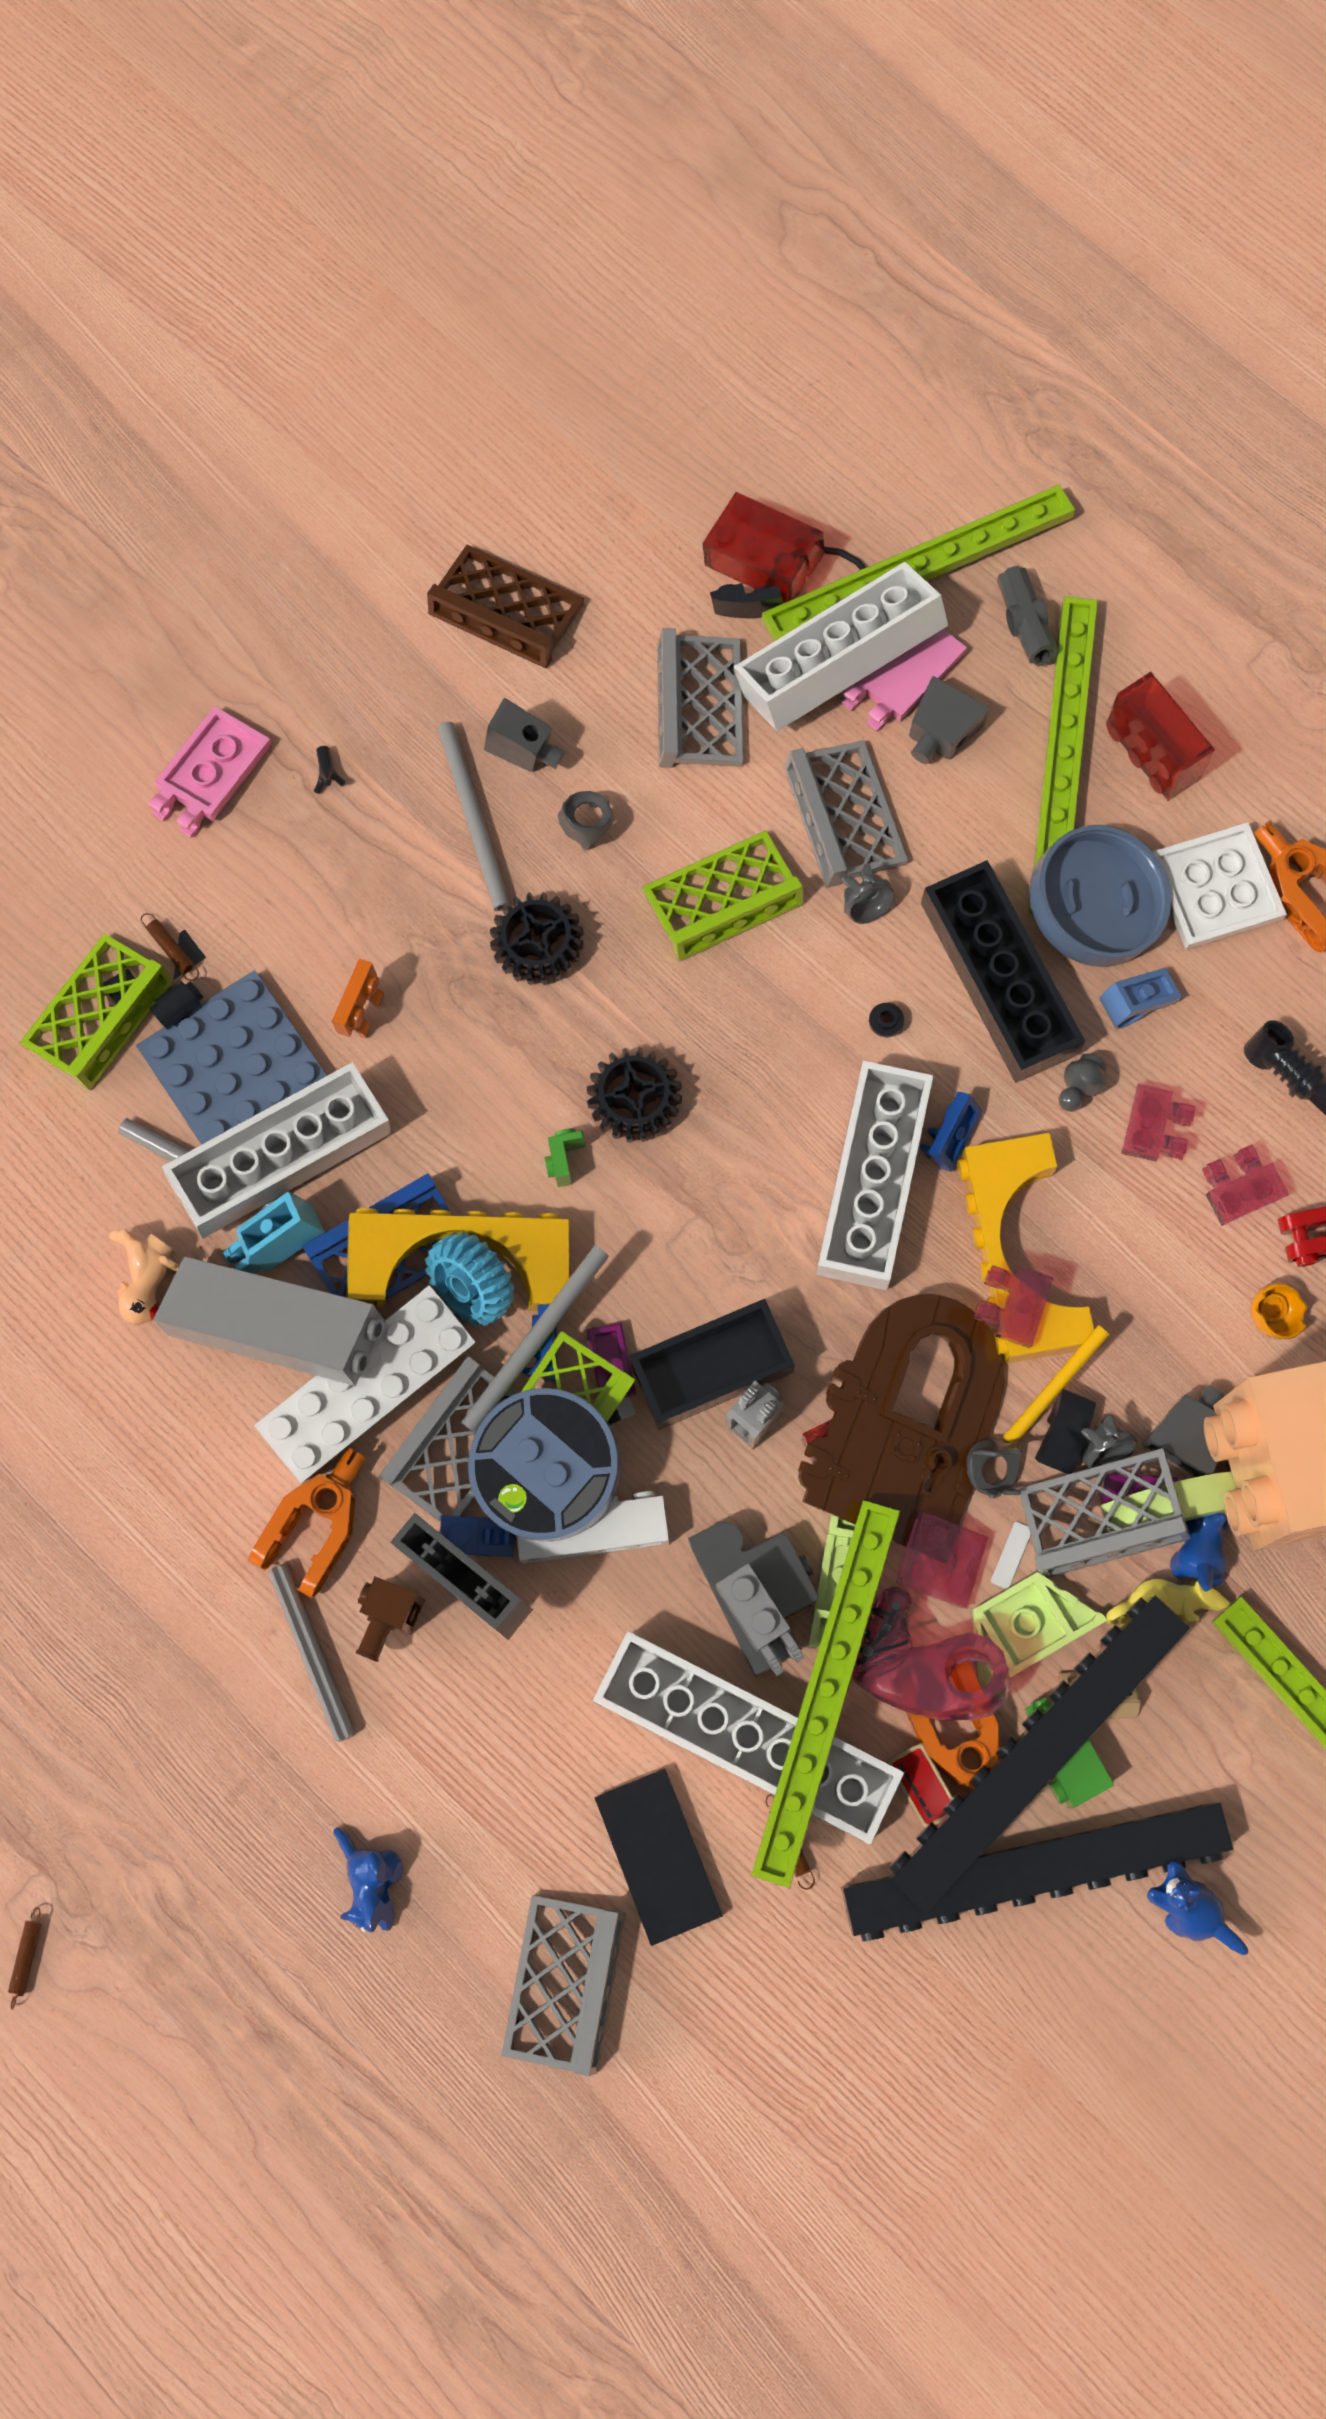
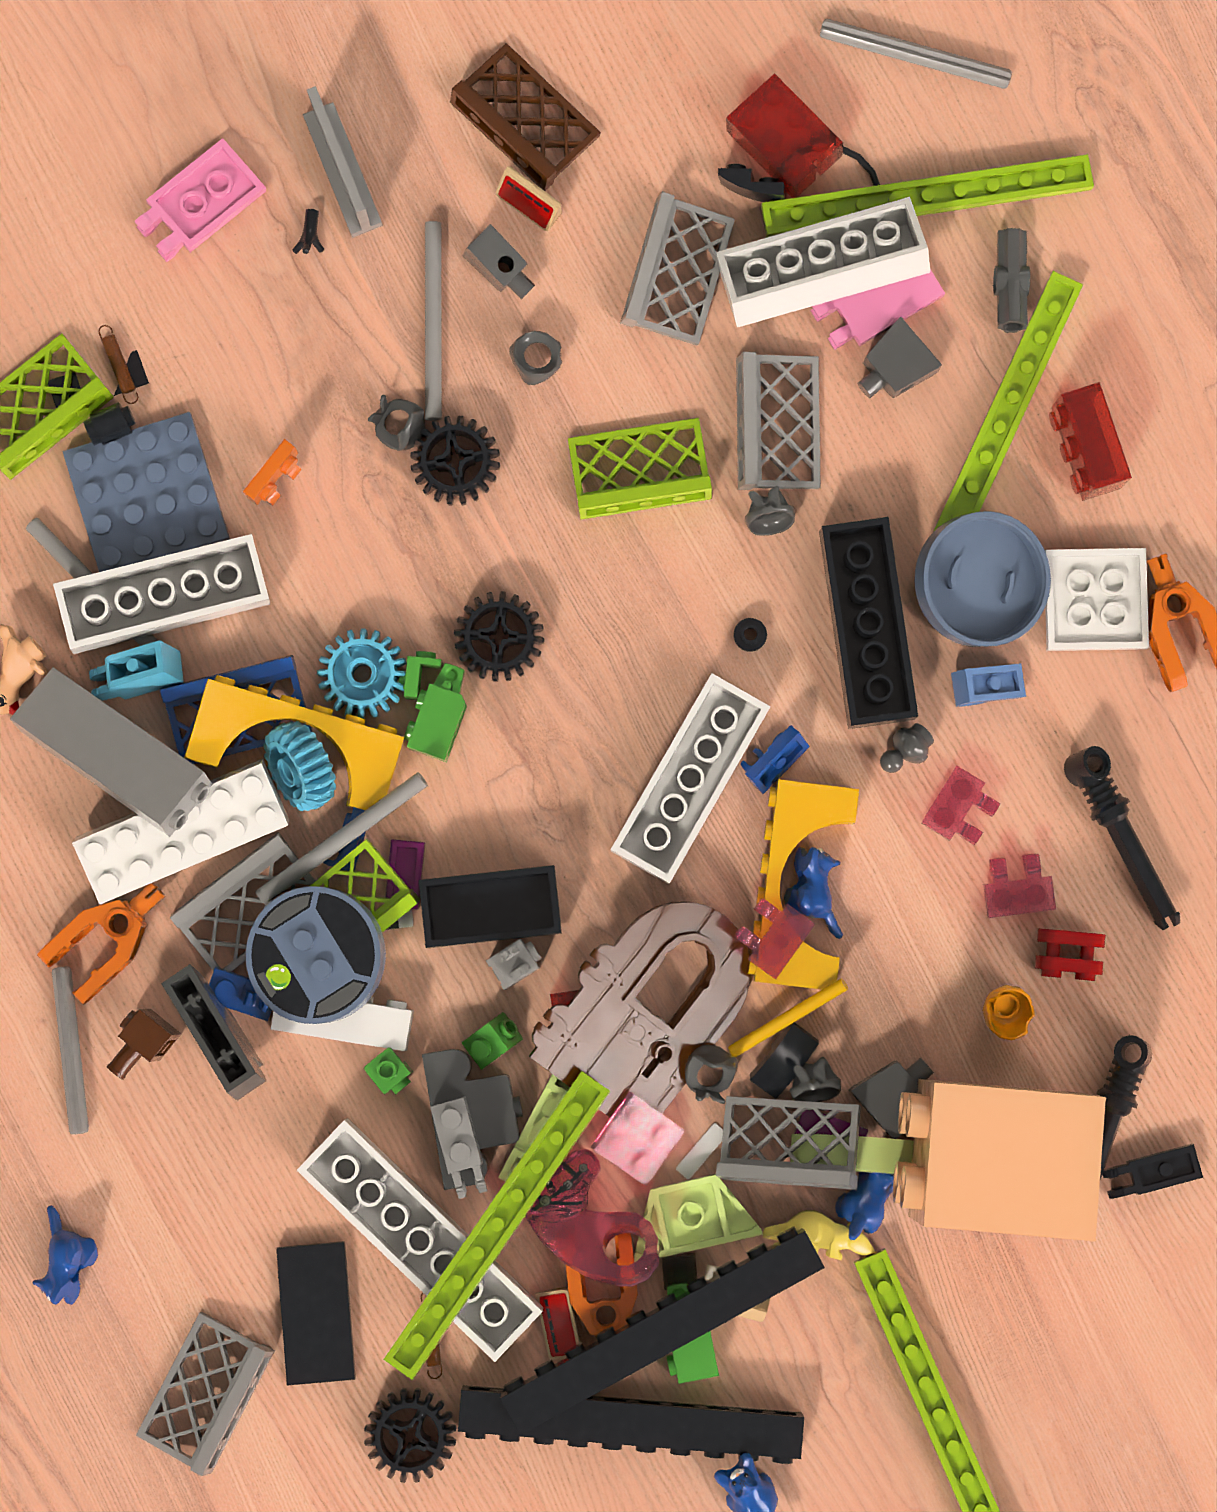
camera: 15 degrees right, 10 degrees up
(337, 695) = (341, 166): none -> light grey fence
(481, 925) = (412, 429): none -> dark grey piece
(501, 1151) = (345, 662): none -> medium azure gear
(533, 676) = (528, 199): none -> slope
(598, 1191) = (439, 715): none -> bright green hinge
(658, 1568) = (389, 1072): none -> bright green bracket
(755, 1504) = (492, 1040): none -> bright green bracket
(835, 1965) = (424, 1443): none -> black gear
(863, 445) = (915, 53): none -> light grey axle
(1031, 1687) = (679, 1269): none -> clear smoke slope
(1034, 1245) = (811, 893): none -> blue animal

